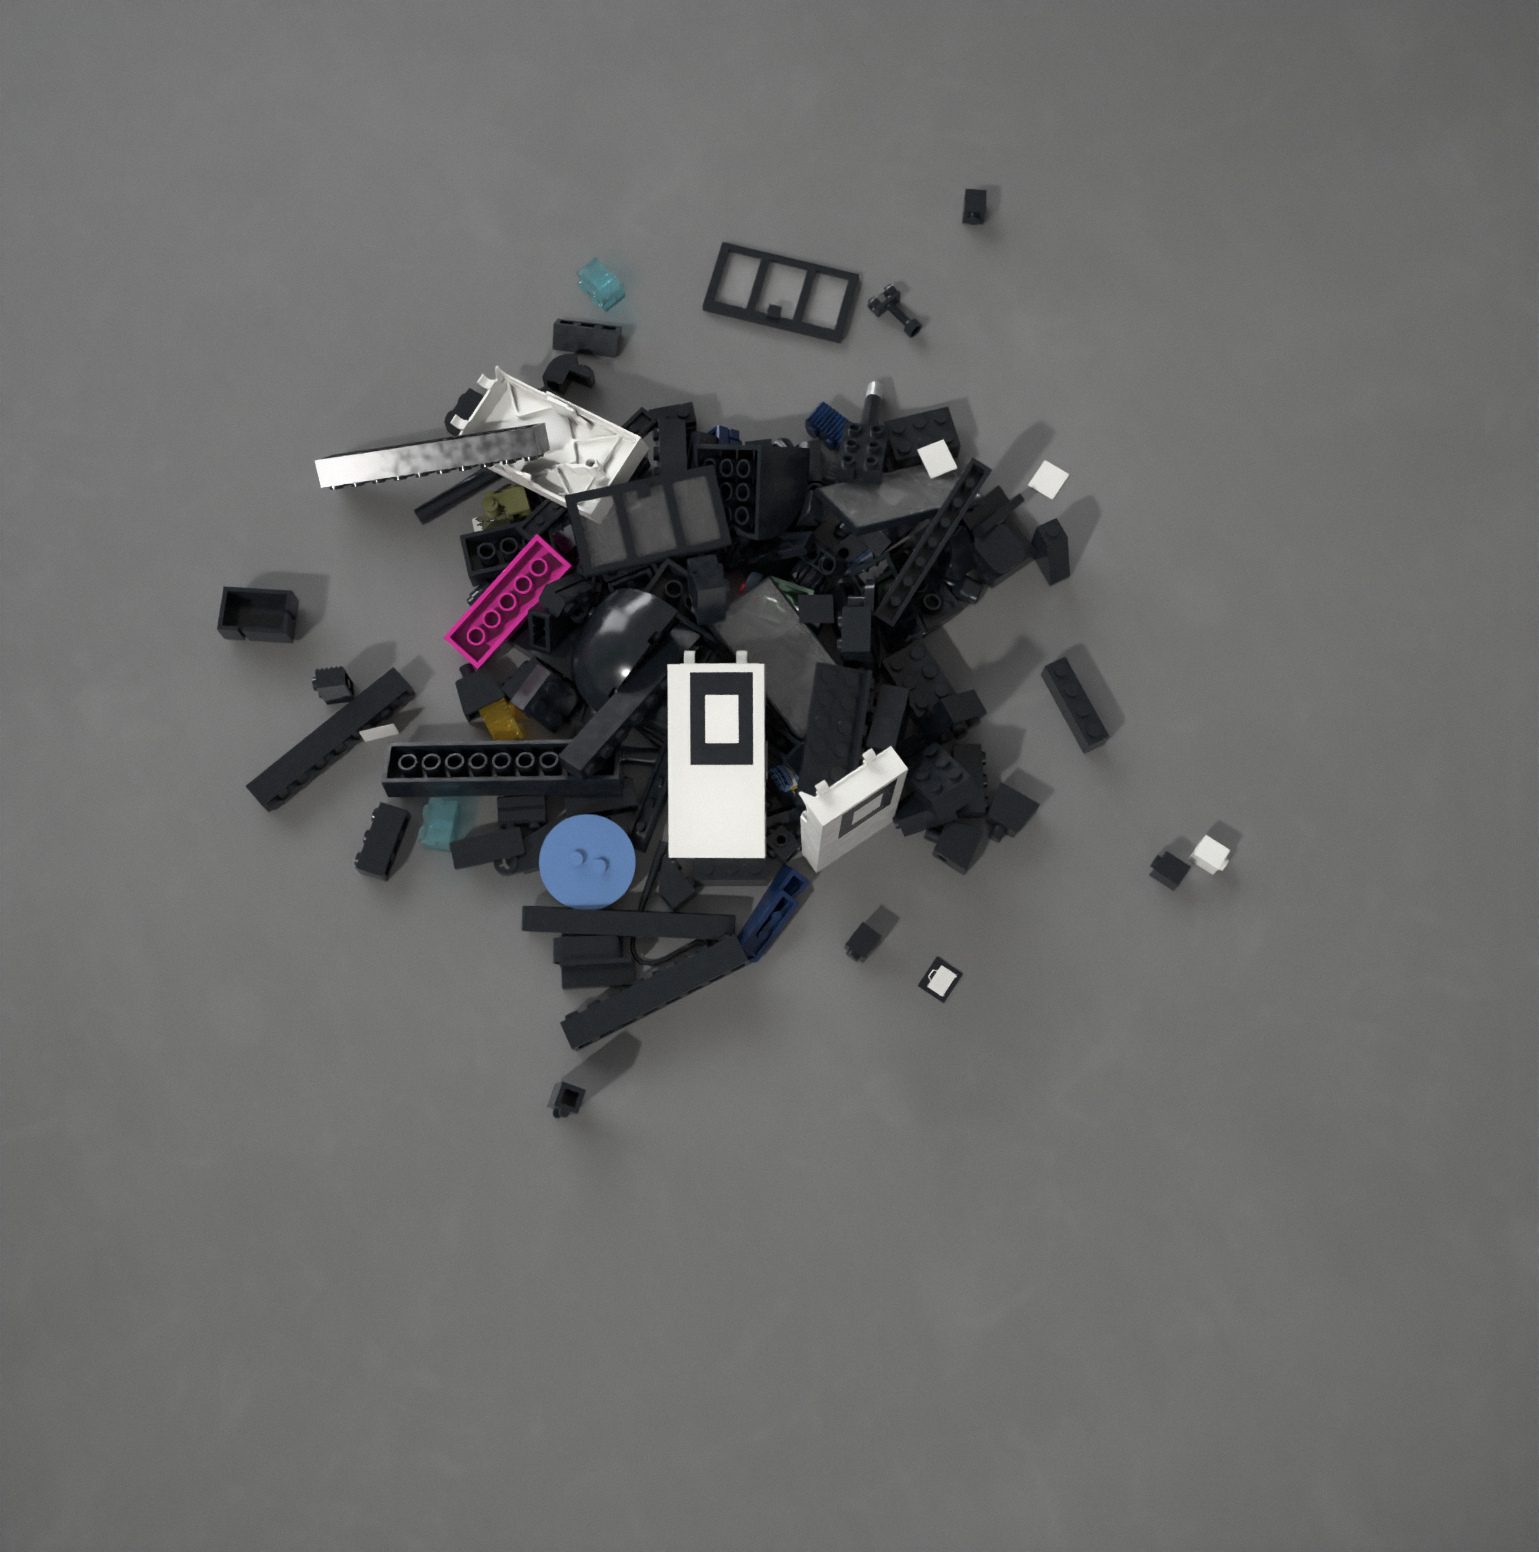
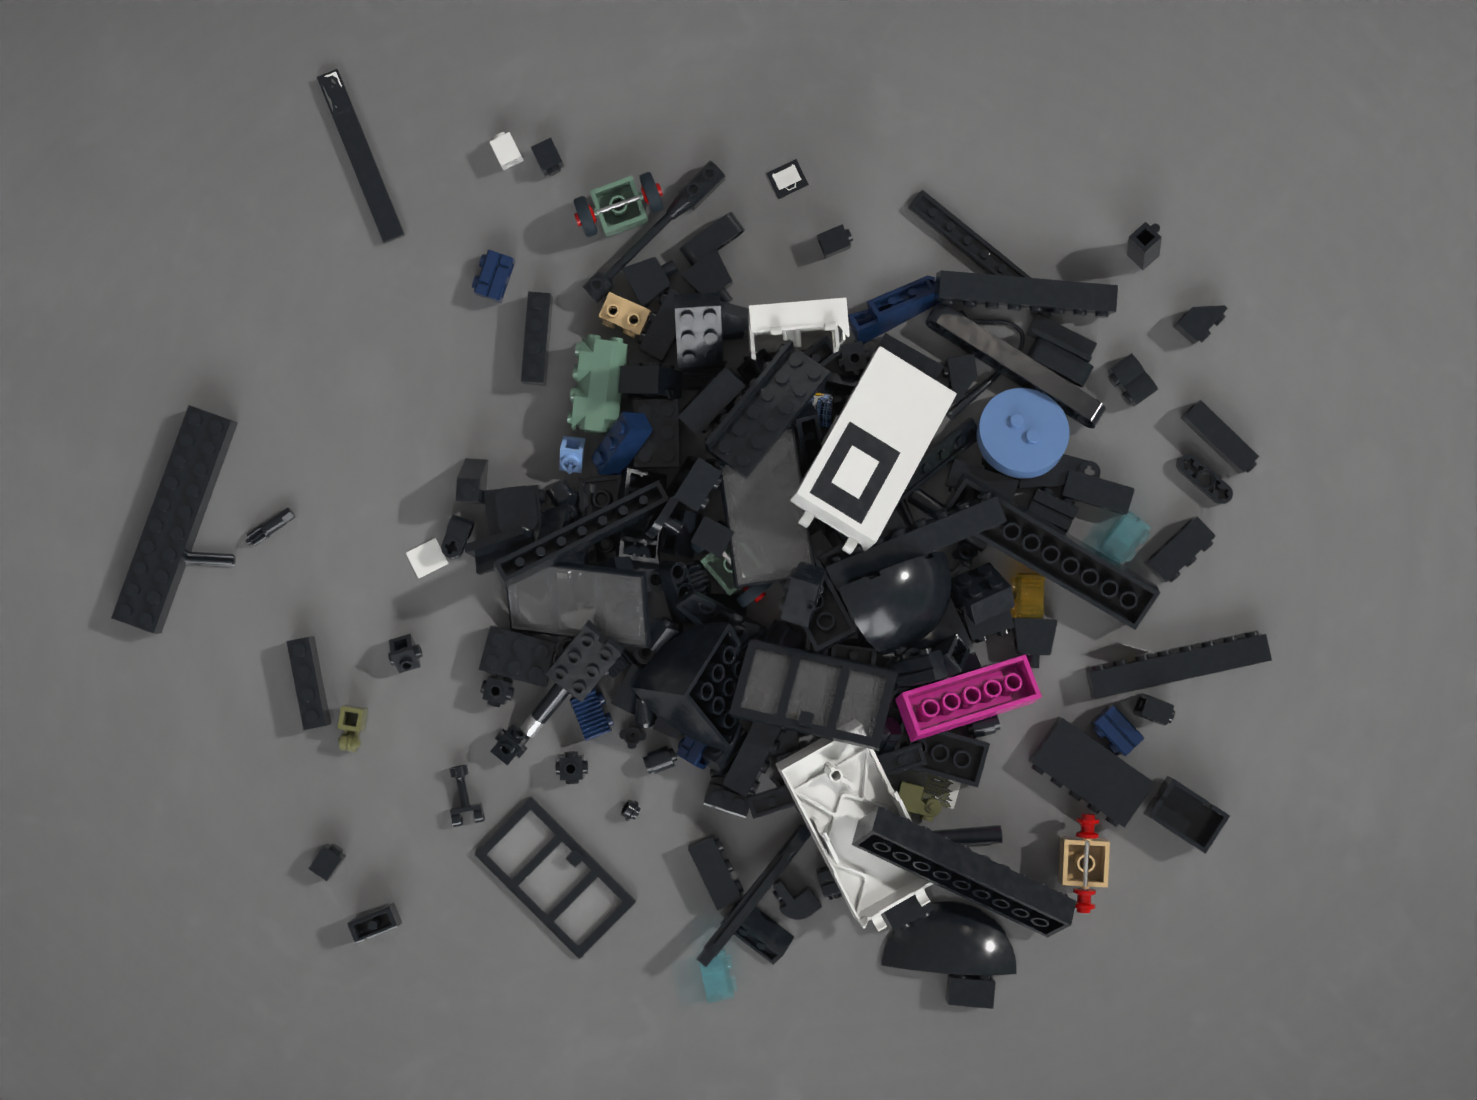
camera: 150 degrees left, 15 degrees up
(330, 527) = (1084, 862): none -> tan brick
(359, 654) = (1116, 730): none -> dark blue brick
(364, 607) = (1091, 772): none -> black brick
(374, 923) = (1213, 495): none -> black beam
(376, 381) = (970, 990): none -> black brick
(397, 964) = (1220, 437): none -> black brick
(410, 407) = (952, 941): none -> black brick
(475, 1063) = (1198, 320): none -> black slope
(510, 971) = (1132, 380): none -> black brick
(607, 345) = (754, 895): none -> black piece
(649, 361) = (716, 871): none -> black brick
(738, 1016) = (965, 239): none -> black tile
(750, 372) = (630, 810): none -> black plate
(750, 422) = (660, 759): none -> black brick
(785, 425) = (626, 735): none -> black plate
(820, 376) = (577, 761): none -> black brick
(883, 366) = (510, 744): none -> black brick
(906, 180) = (374, 923): none -> black brick
(921, 400) = (503, 684): none -> black brick
(937, 458) = (520, 622): white sticker -> none
(944, 649) = (622, 443): none -> dark blue brick
(975, 881) = (712, 238): none -> black beam
(980, 623) = (572, 459): none -> light blue brick
(992, 676) = (597, 375): none -> sand green brick
(1011, 767) = (625, 314): none -> tan brick
(1017, 390) = (404, 653): none -> black brick
(1020, 904) = (688, 197): none -> black bar
(1025, 315) = (352, 721): none -> olive brick
(1035, 508) = (457, 532): none -> black piece
(1079, 857) = (619, 205): none -> brick
(1080, 328) = (308, 683): none -> black brick
(1147, 738) = (493, 275): none -> dark blue brick
(1196, 428) = (264, 530): none -> black piece
(1233, 379) = (210, 559): none -> black axle
(1277, 395) = (174, 520): none -> black brick
(1333, 780) = (360, 156): none -> black tile

